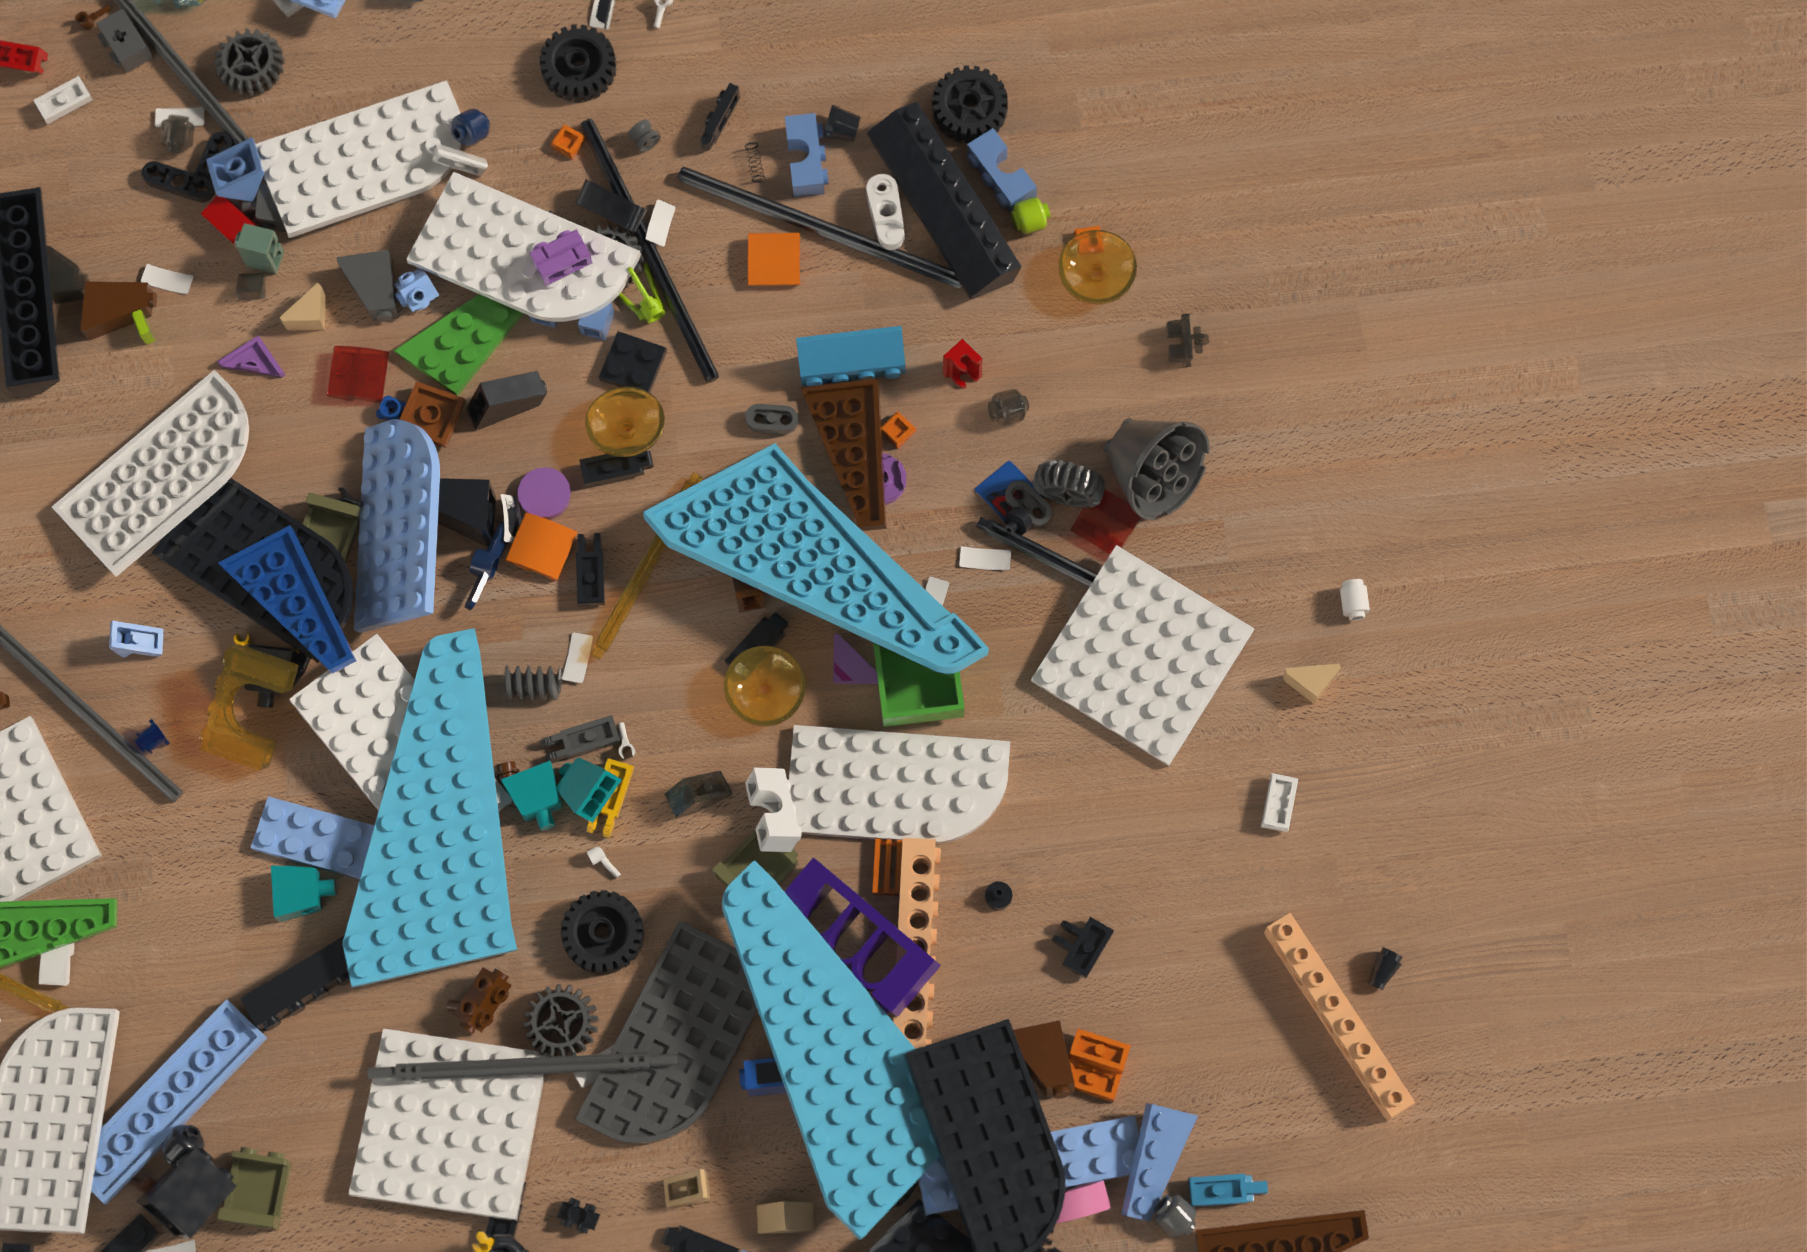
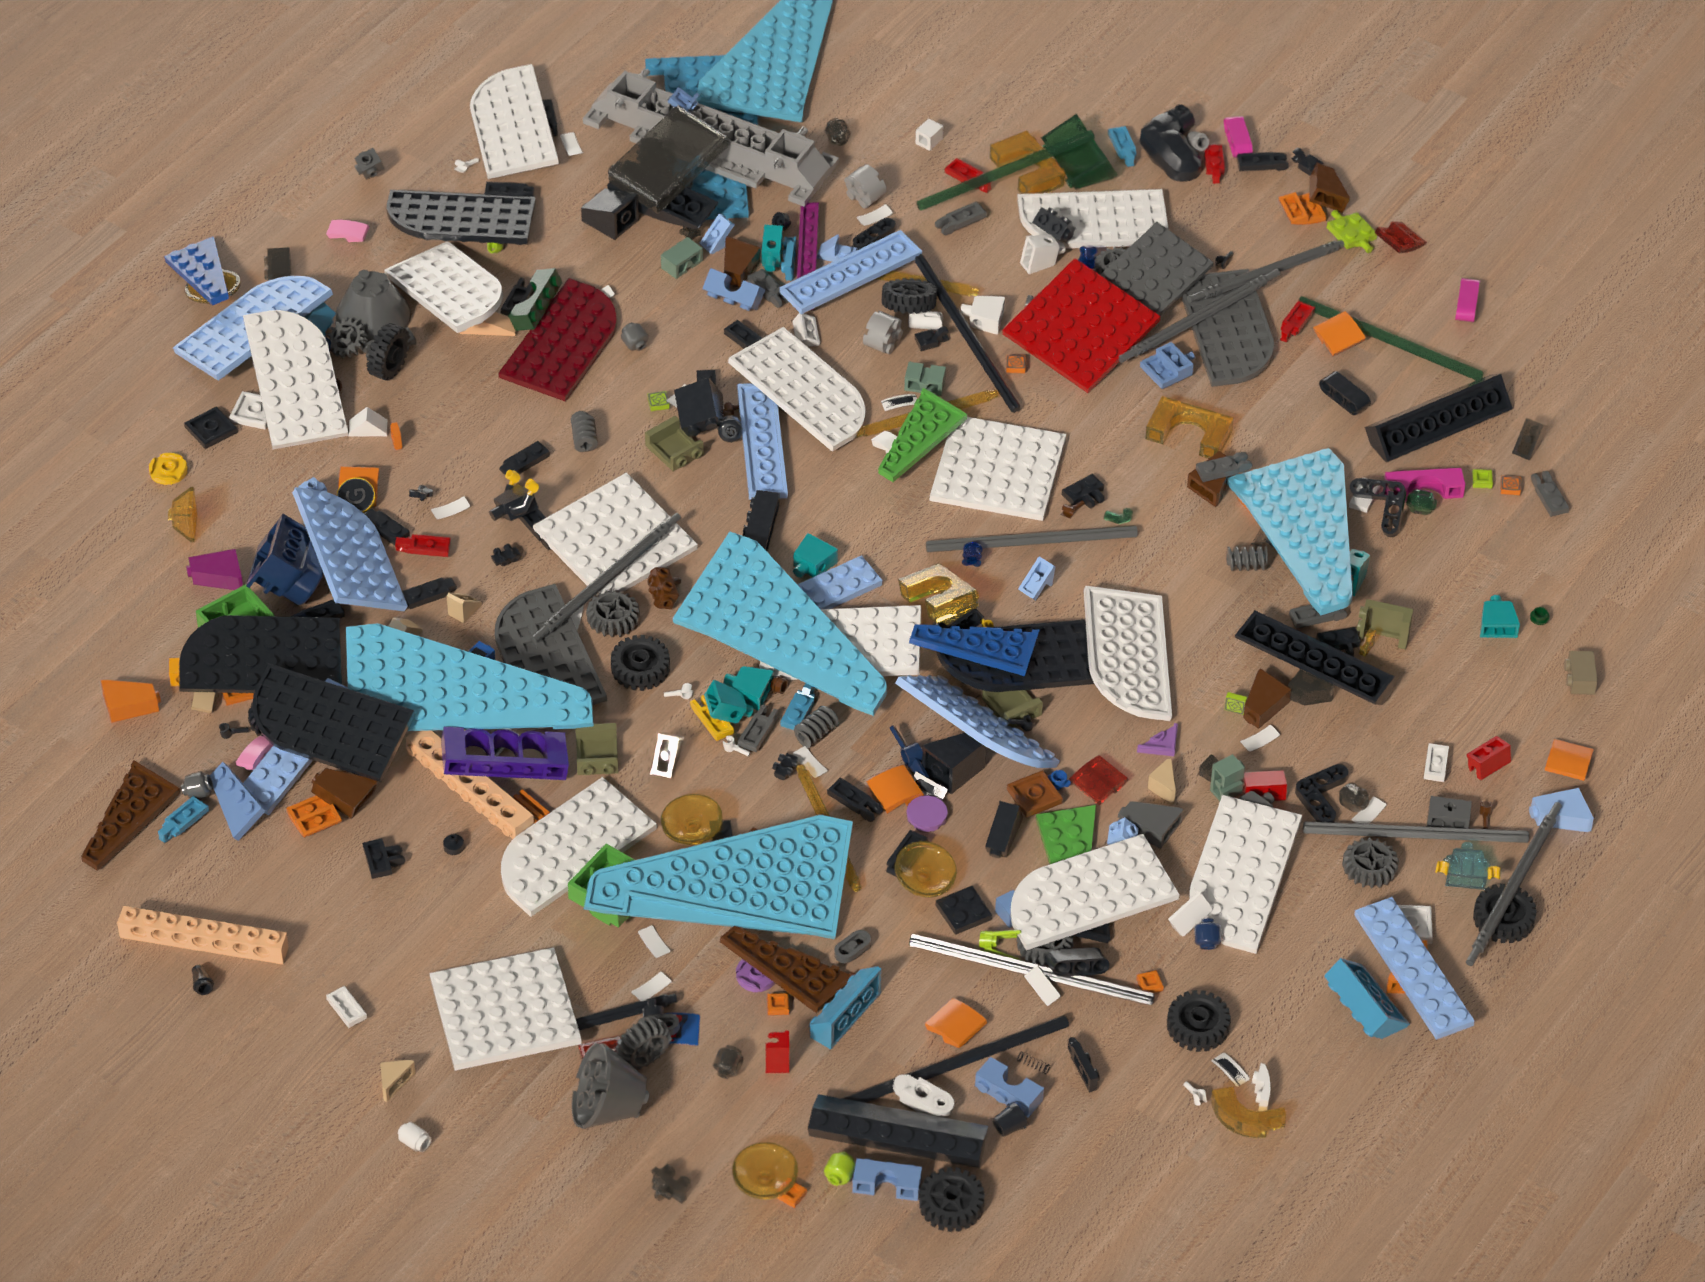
camera: 130 degrees right, 25 degrees down
(237, 171) = (1292, 796): medium blue slope -> none
(520, 726) = (799, 707): none -> dark azure hinge
(560, 256) = (1059, 893): medium lavender brick -> none
(611, 671) = (786, 766): none -> black piece
(644, 135) = (1110, 1017): dark grey wheel -> none
(771, 790) = (629, 781): white arch -> none

